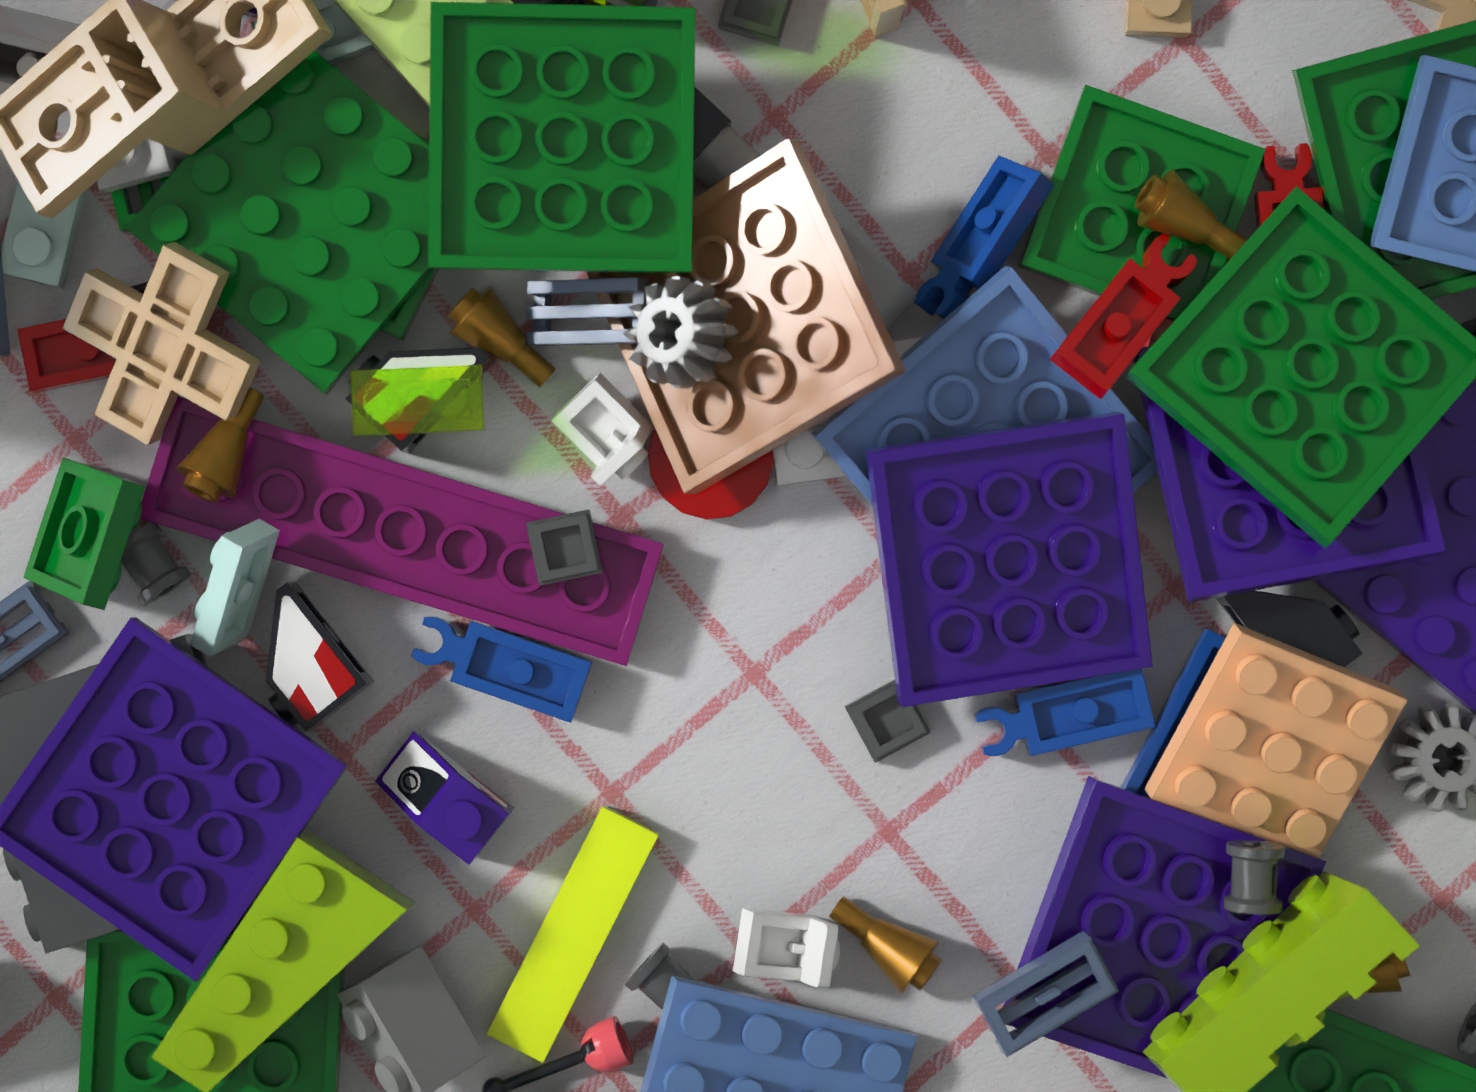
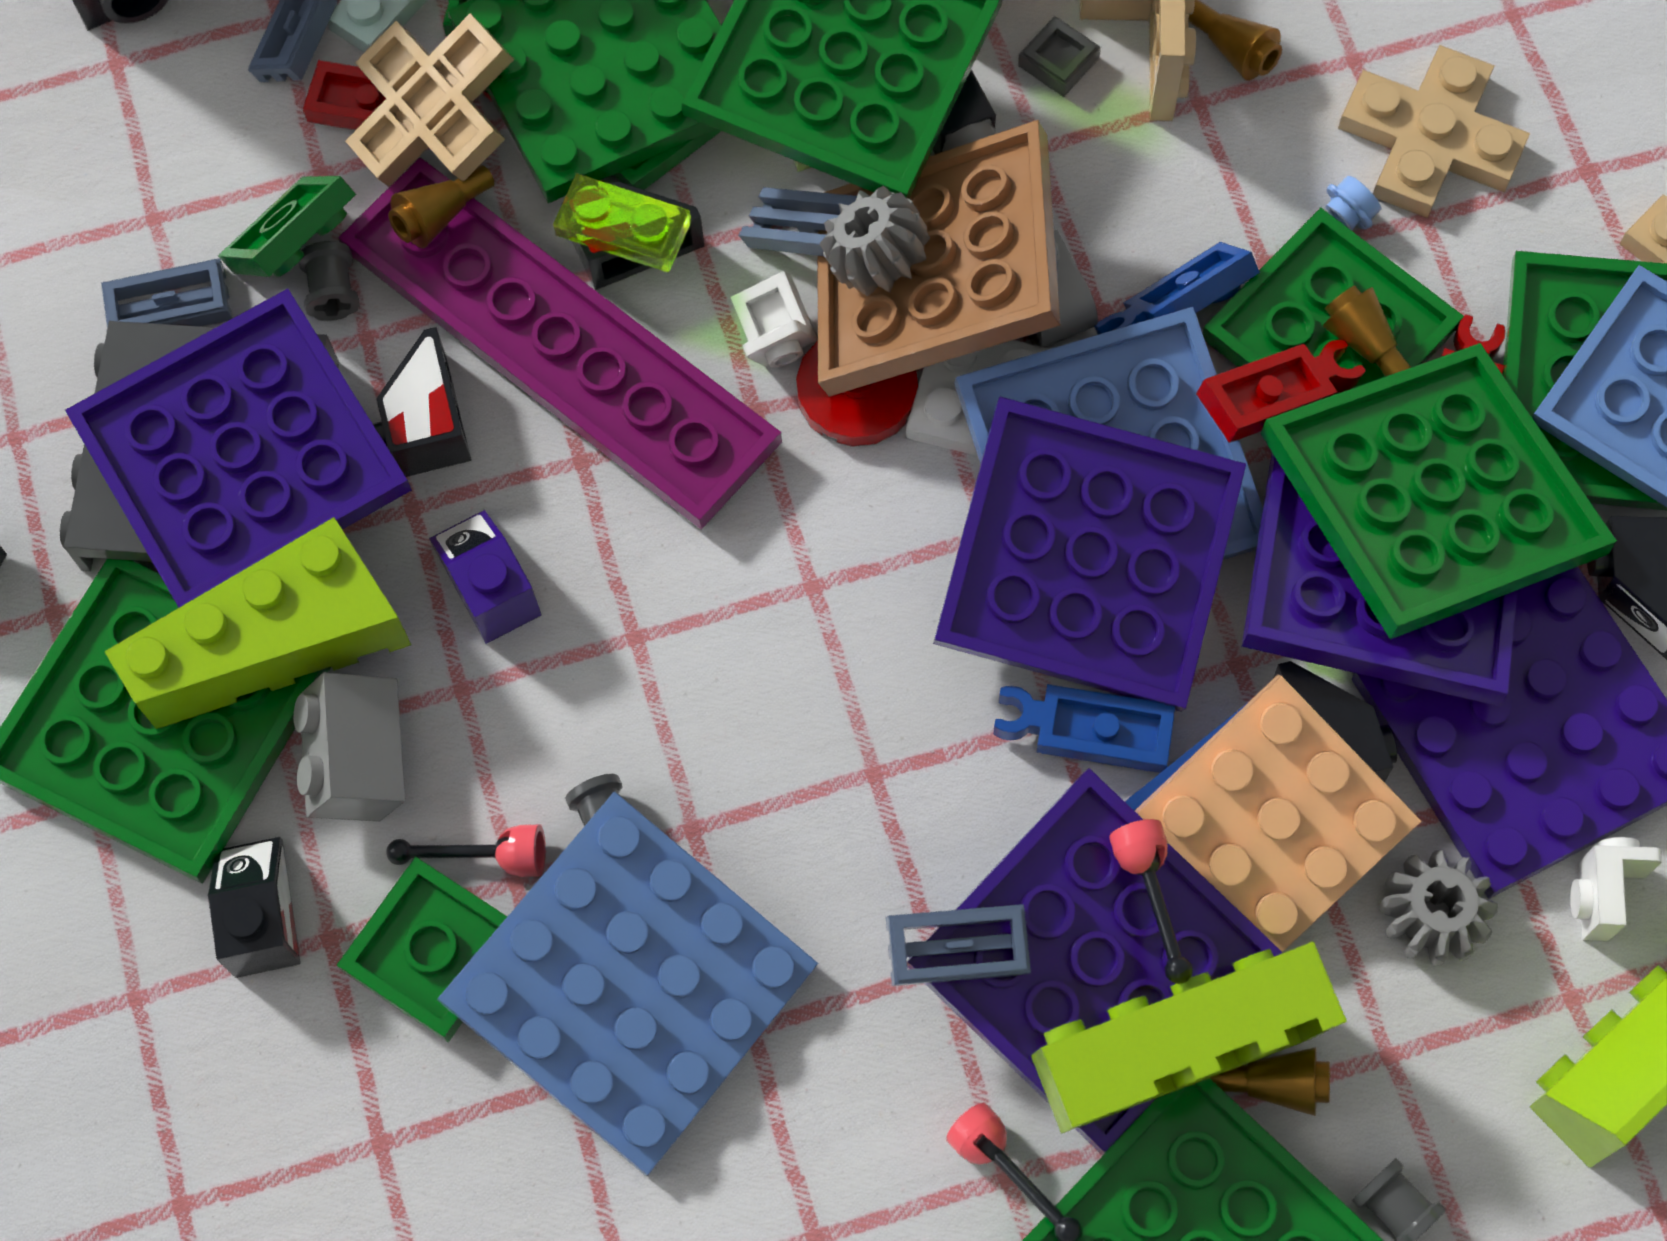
camera: 25 degrees right, 20 degrees down
(234, 586) = (389, 315): light aqua plate -> none
(489, 326) = (714, 199): pearl gold cone -> none
(510, 667) = (595, 485): blue plate -> none
(564, 547) = (691, 397): dark grey tile -> none
(572, 933) = (539, 740): neon yellow tile -> none
(786, 947) = (730, 825): white bracket -> none
(884, 722) = (916, 670): dark grey tile -> none
(898, 951) = (838, 881): pearl gold cone -> none
(1112, 63) = (1352, 203): none -> light blue plate
(1176, 845) = (1142, 851): none -> hinge
(1254, 877) = (1209, 921): dark grey bush -> none

